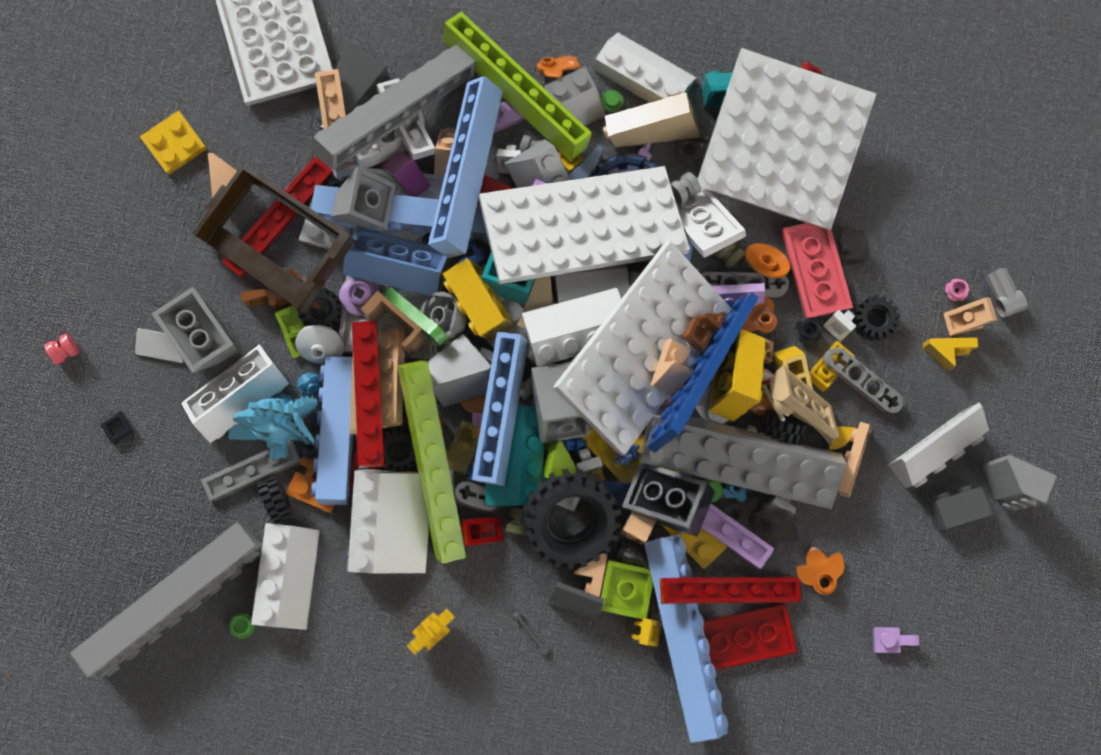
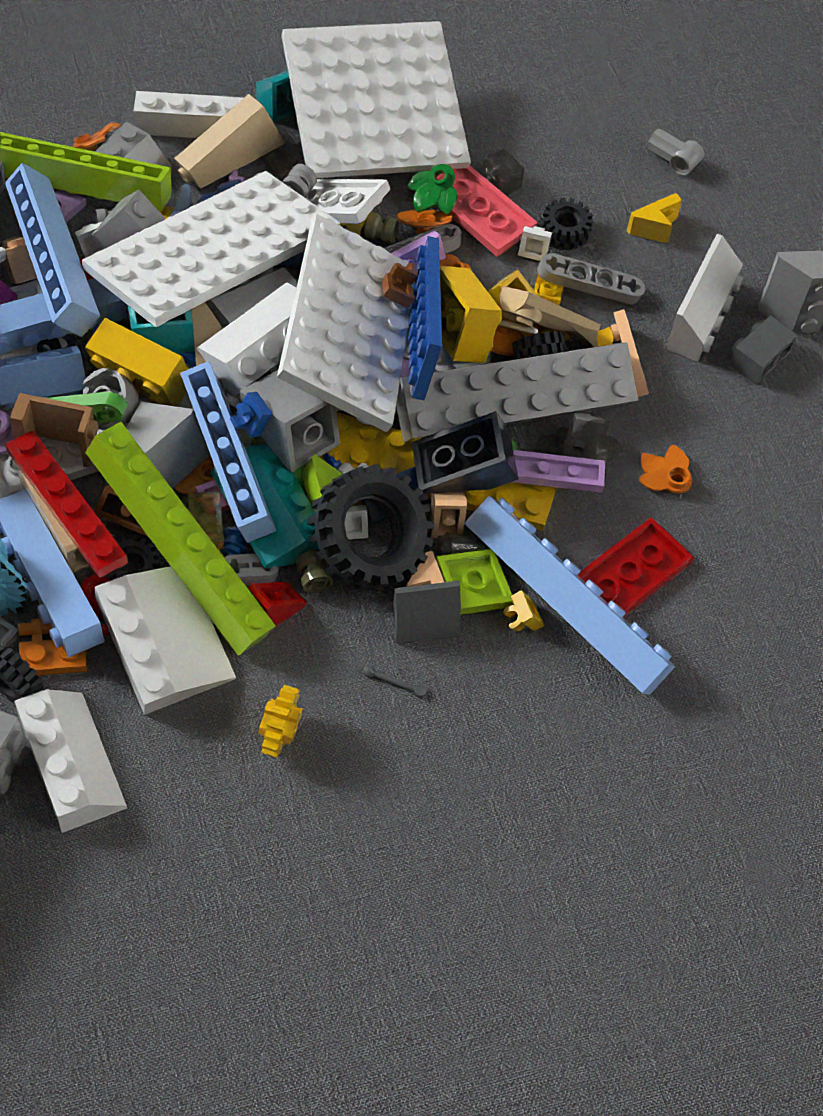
camera: 30 degrees left, 20 degrees down
(241, 626) = (44, 839): bright green plate -> none
(390, 357) = (79, 473): light nougat plate -> none
(527, 395) = (252, 414): none -> blue tile
(611, 101) = (171, 148): bright green plate -> none
(631, 454) = (392, 445): blue wheel -> none
(672, 368) = (392, 324): light nougat slope -> none
(730, 590) = (584, 522): red tile -> none
(739, 494) = (524, 441): dark azure plate -> none
(785, 242) = (431, 191): none -> green plate
(811, 324) = (506, 262): black plate -> none
(889, 640) = (778, 502): lavender plate -> none
(963, 289) = (628, 168): bright pink plate -> none
(970, 316) = (656, 180): light nougat slope -> none

